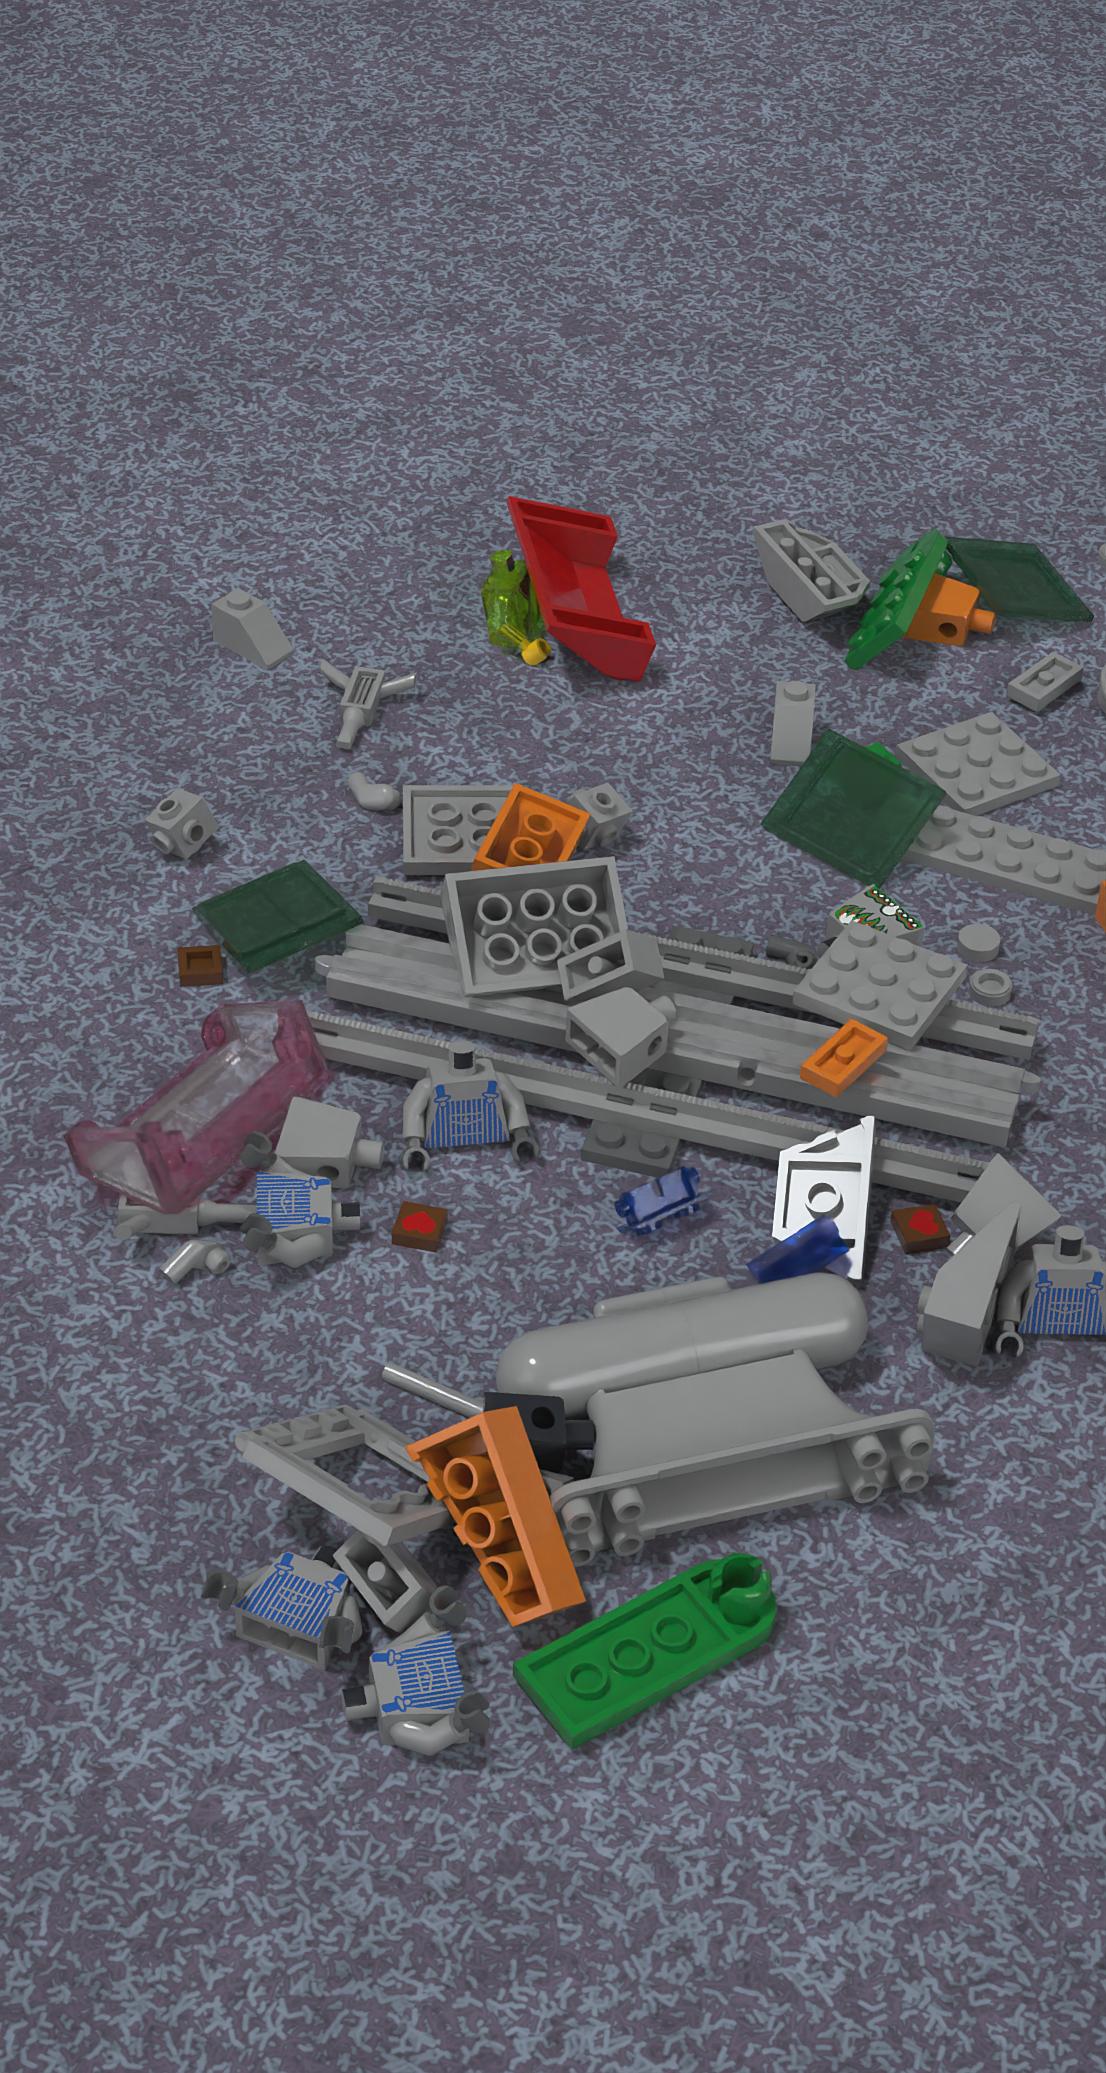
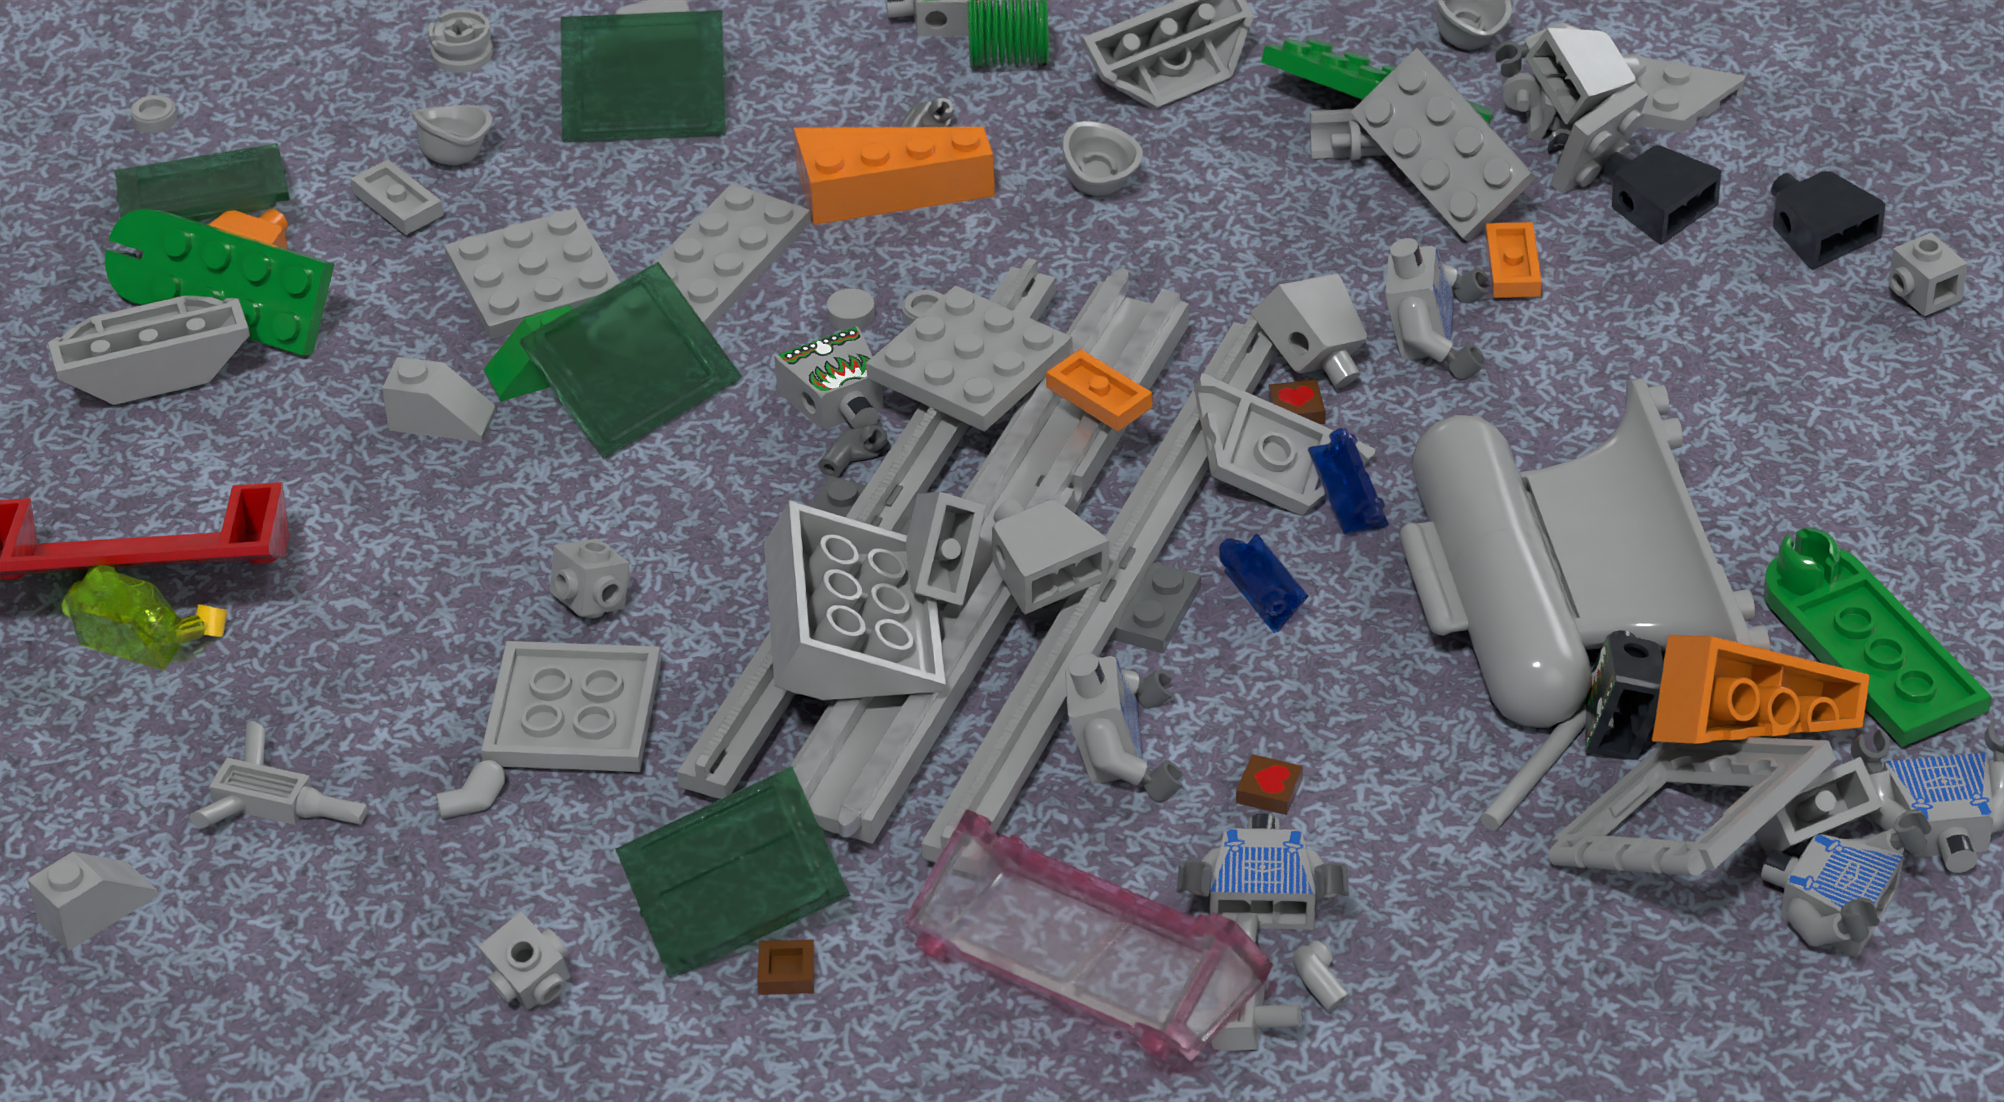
camera: 80 degrees left, 0 degrees up
(326, 1142) = (1143, 848): light grey torso -> none
(531, 831) = (671, 630): orange slope -> none
(966, 1291) = (1434, 340): light grey slope -> none

